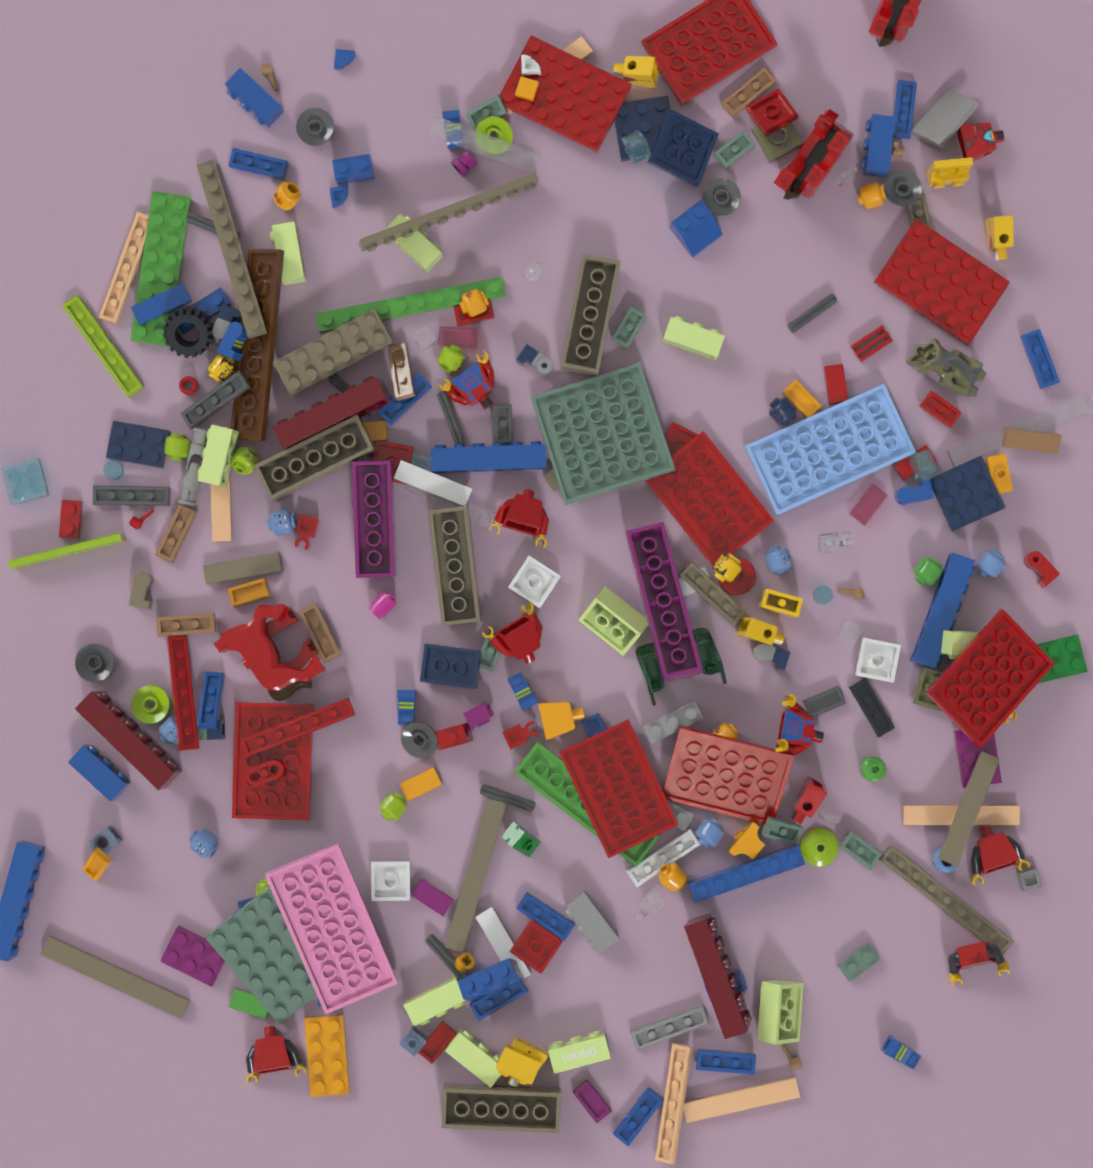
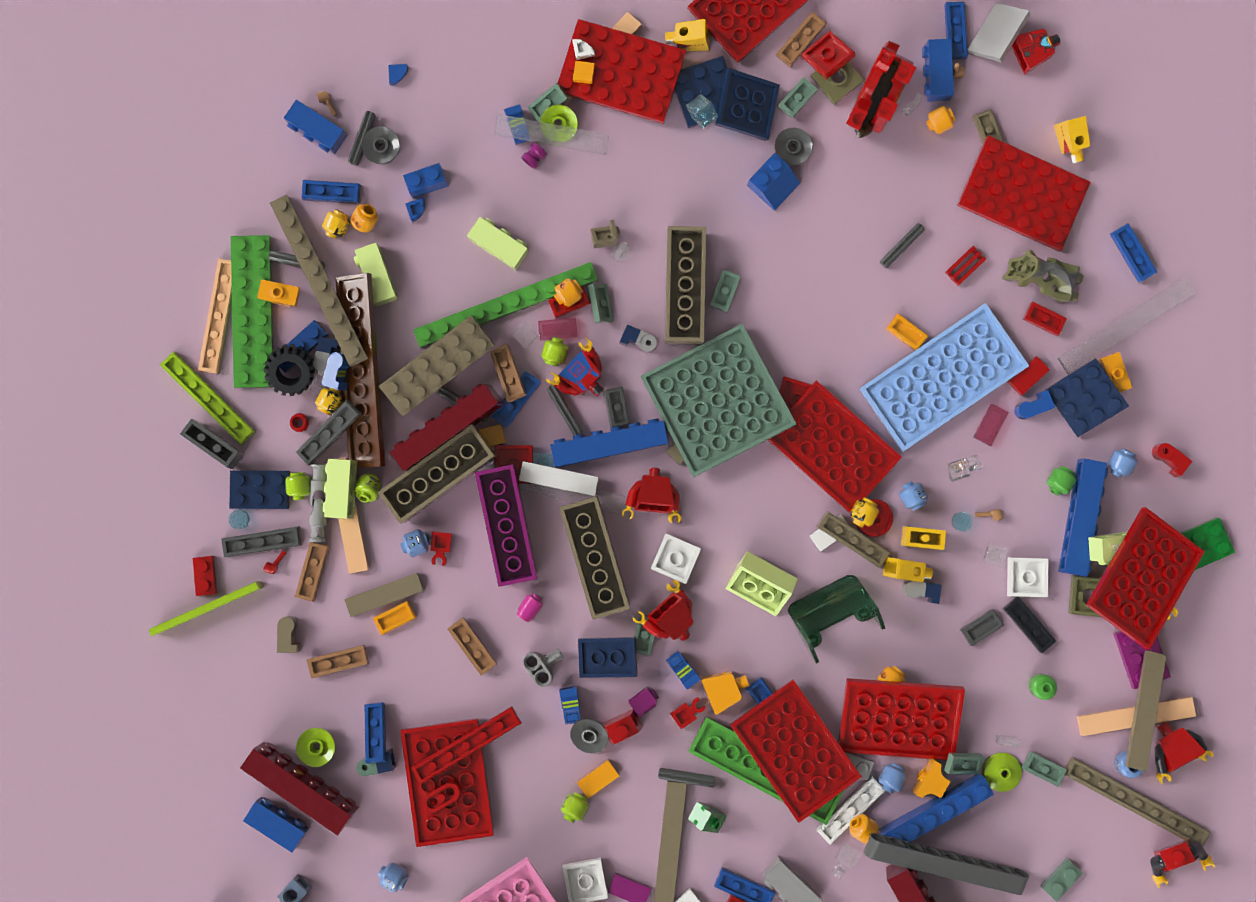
camera: 15 degrees left, 0 degrees up
(25, 481) = (152, 546): clear light blue plate -> none
(85, 666) = (243, 715): dark grey dish -> none
(100, 391) = (212, 444): none -> dark grey brick
(161, 304) = (258, 347): blue tile -> none
(168, 731) = (342, 769): medium blue head -> none
(182, 693) = (346, 731): red tile -> none
(190, 255) = (278, 293): none -> light orange brick
(258, 196) = (336, 224): none -> yellow head
(263, 656) = (419, 679): red piece -> none
(303, 105) = (366, 125): none -> dark grey axle
(386, 662) = (542, 666): none -> light grey beam
(443, 215) = (522, 211): dark tan plate -> none
(504, 319) = (600, 303): none -> sand green plate
(520, 254) = (605, 236): none -> dark tan bracket
(663, 602) = (808, 558): magenta brick -> none
(672, 721) = (836, 673): light grey brick -> none
(693, 337) = (790, 290): yellowish green brick -> none
(746, 923) = (946, 864): none -> dark grey beam
(782, 411) = (891, 347): dark blue head -> none
(796, 729) = (960, 660): torso -> none
(811, 792) = (985, 727): red torso -> none
(835, 383) = (937, 311): red tile -> none
(906, 182) = (973, 102): dark grey dish -> none
(922, 464) = (1038, 377): clear light blue brick -> none
(949, 172) = (1013, 84): yellow plate -> none
(1029, 879) = (1214, 767): light grey tile -> none
(1031, 440) = (1139, 334): medium nougat tile -> none

